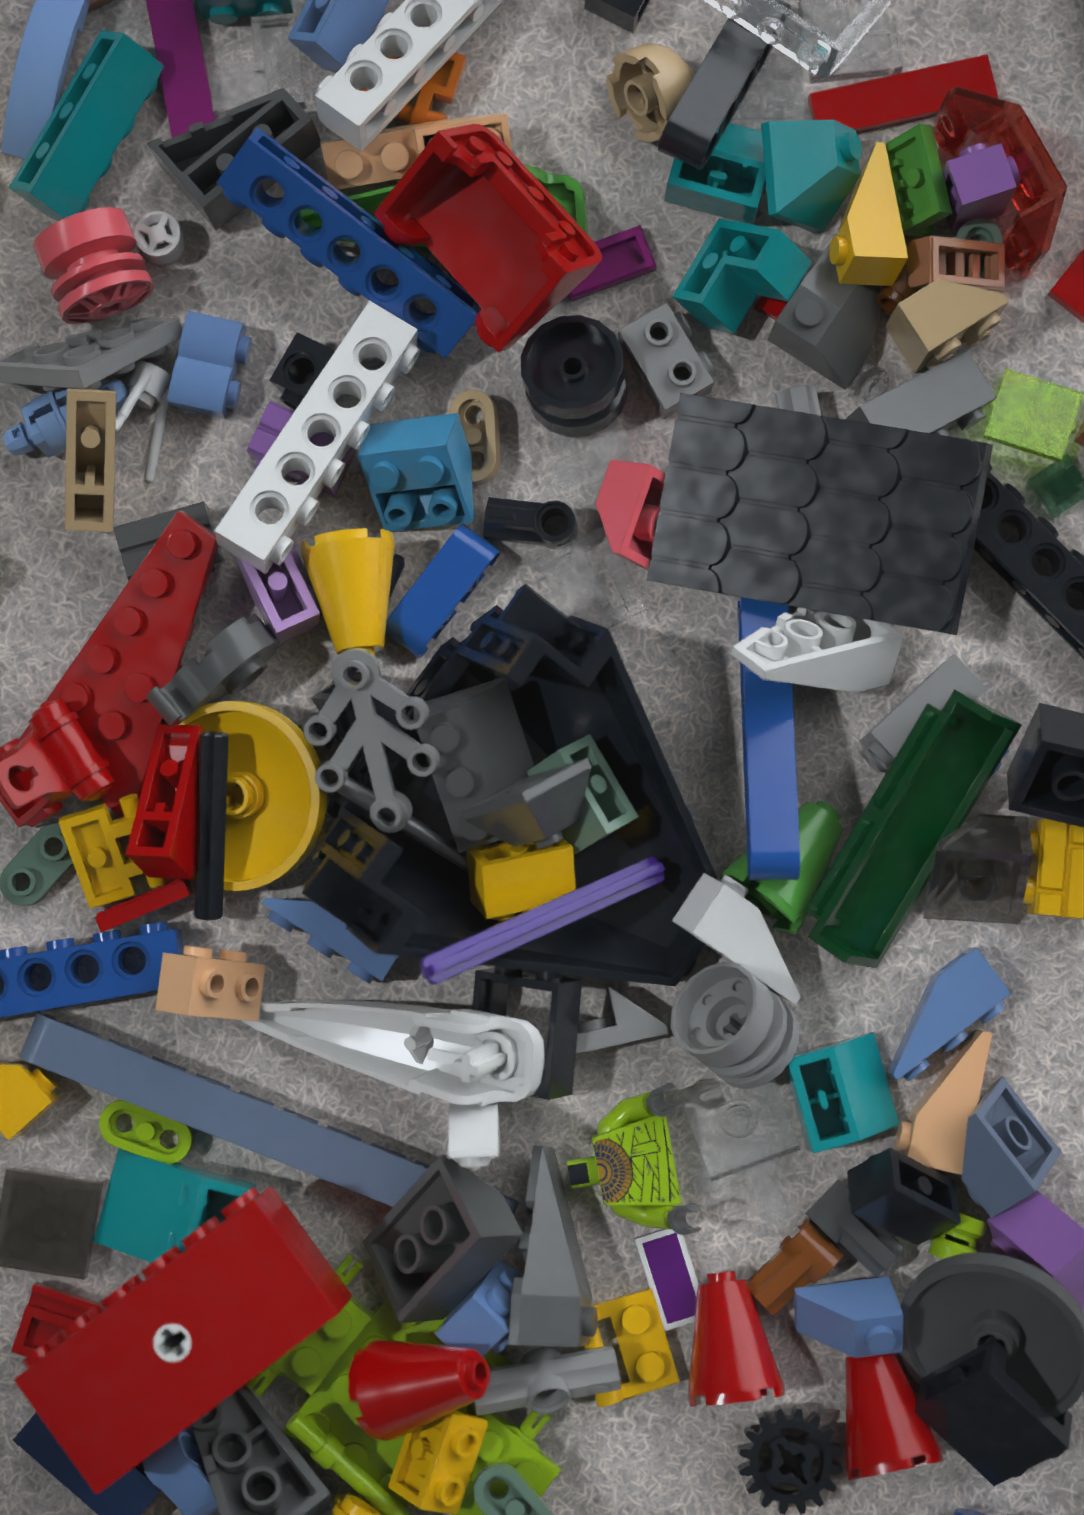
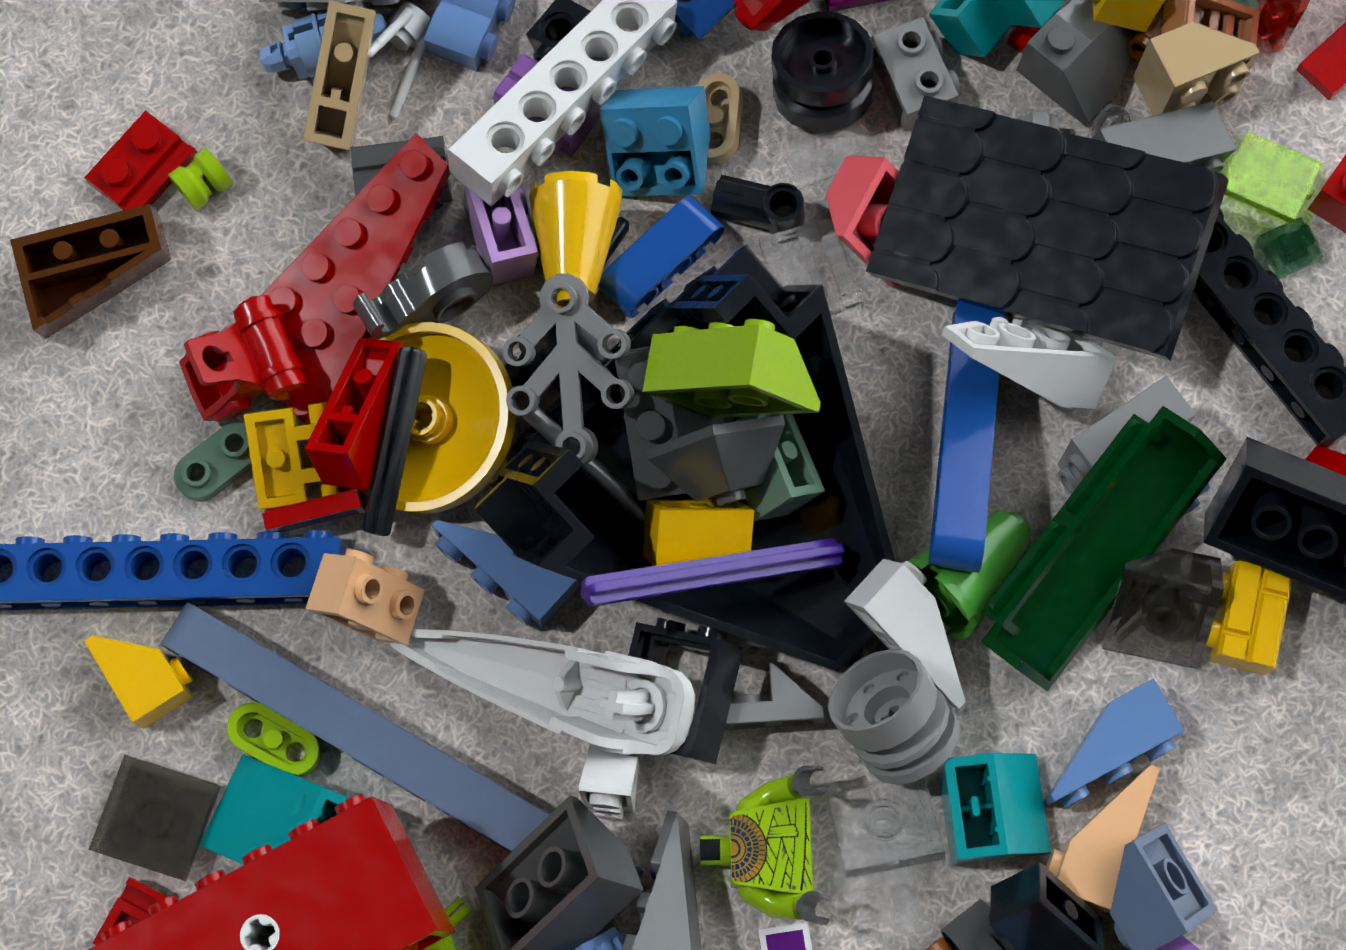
camera: 10 degrees right, 10 degrees down
(528, 725) = (730, 371): none -> lime slope

